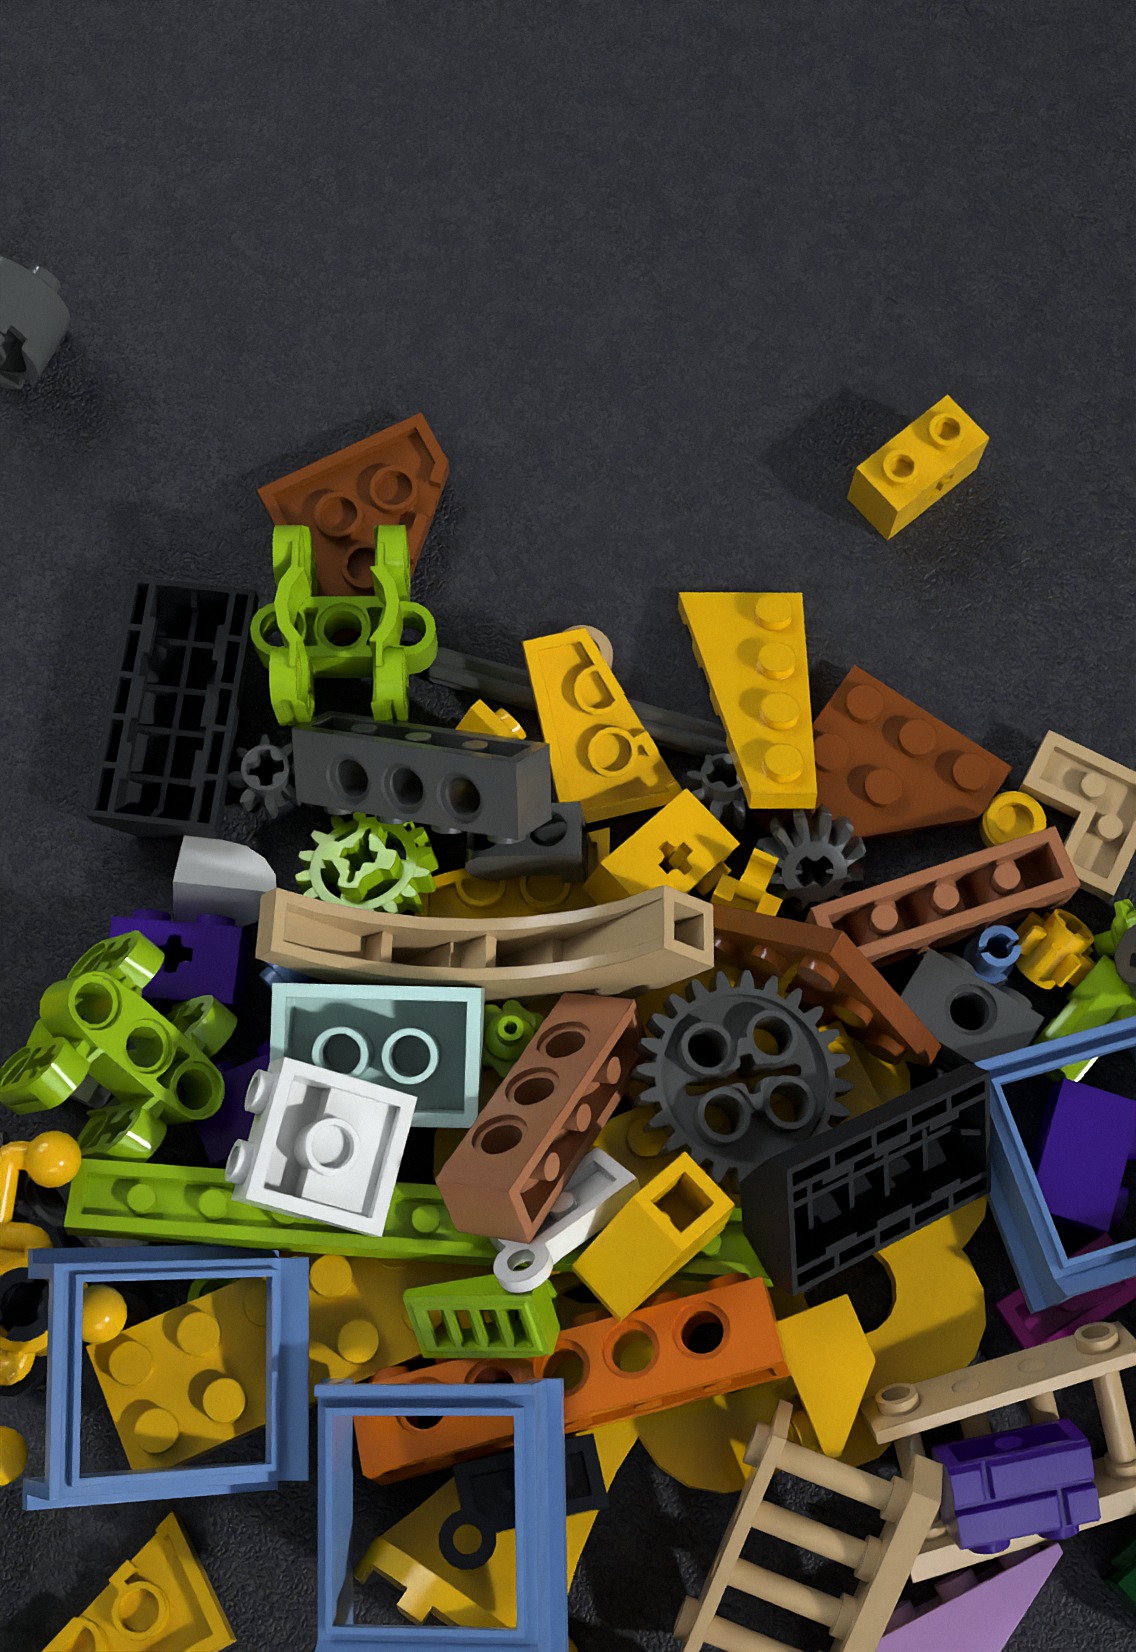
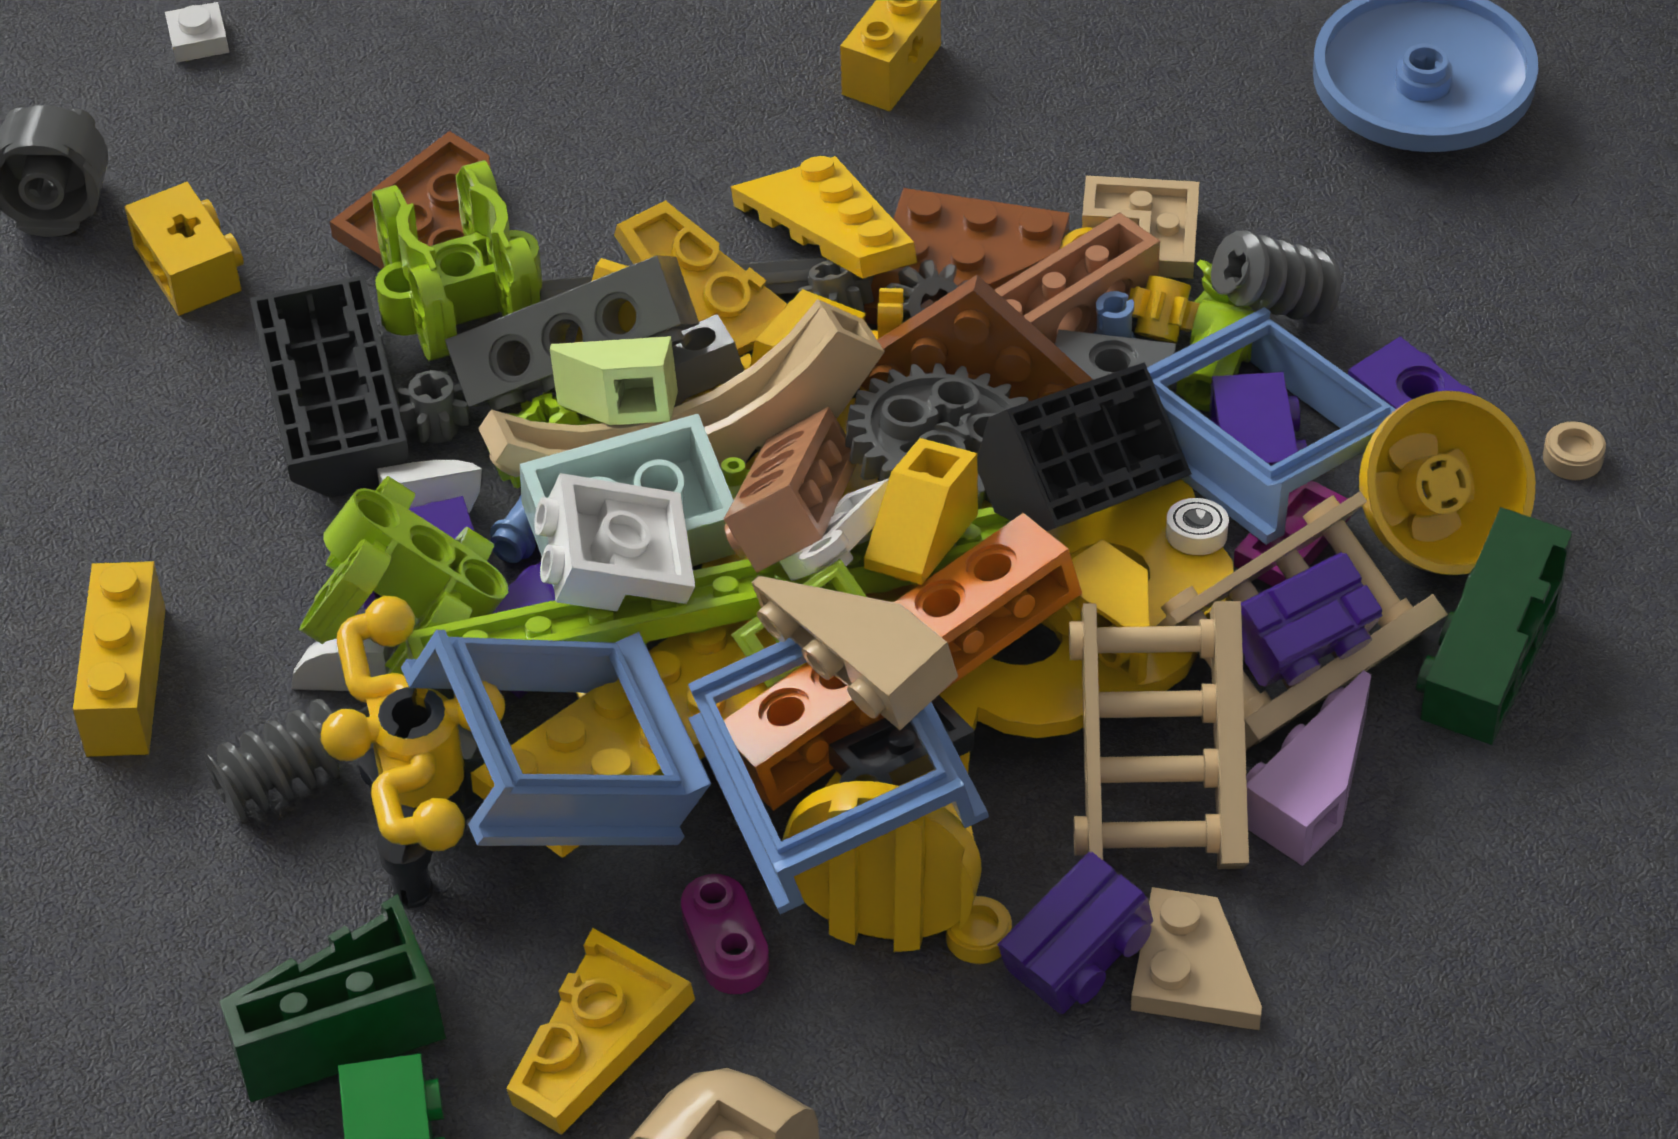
camera: 20 degrees left, 25 degrees down
(90, 436) = (185, 247): none -> yellow brick
(228, 168) = (197, 32): none -> white plate
(290, 1565) = (722, 928): none -> magenta plate
(437, 874) = (617, 379): none -> yellowish green slope
(497, 1474) = (868, 643): none -> tan slope
(966, 1270) = (1197, 526): none -> white tile

